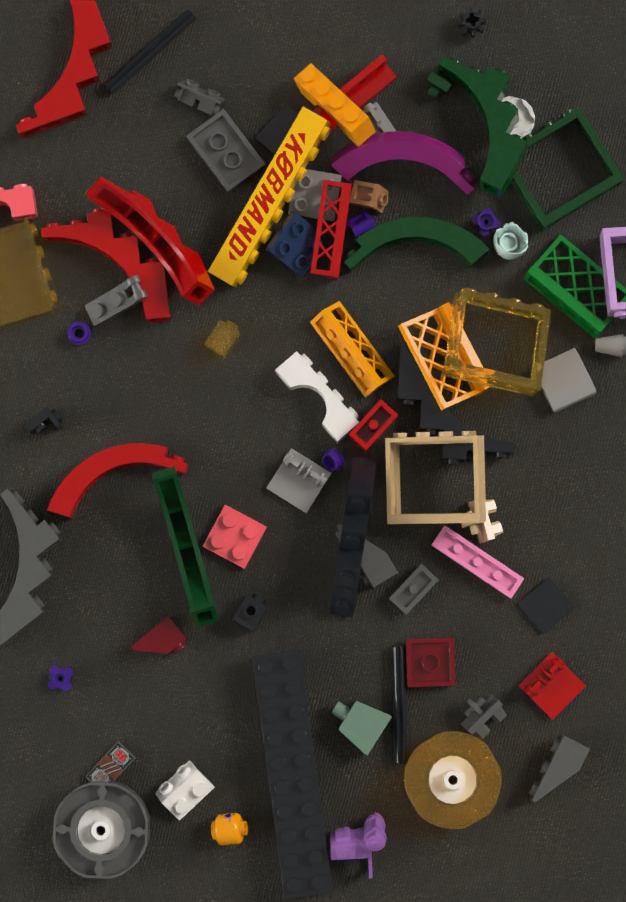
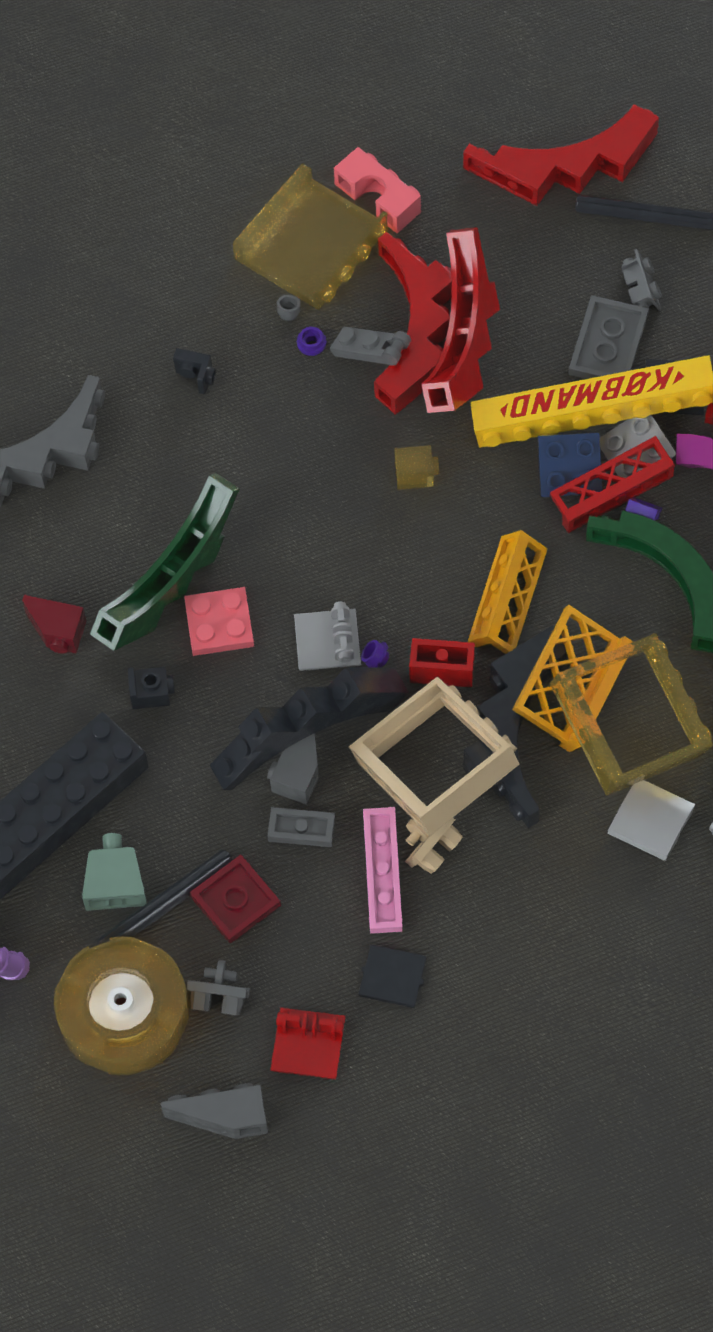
camera: 55 degrees right, 20 degrees down
(41, 326) = (288, 307): none -> dark grey hinge
(98, 465) = (186, 444): red arch -> none
(298, 374) = (436, 561): white arch -> none
(369, 196) = (680, 499): medium nougat bracket -> none

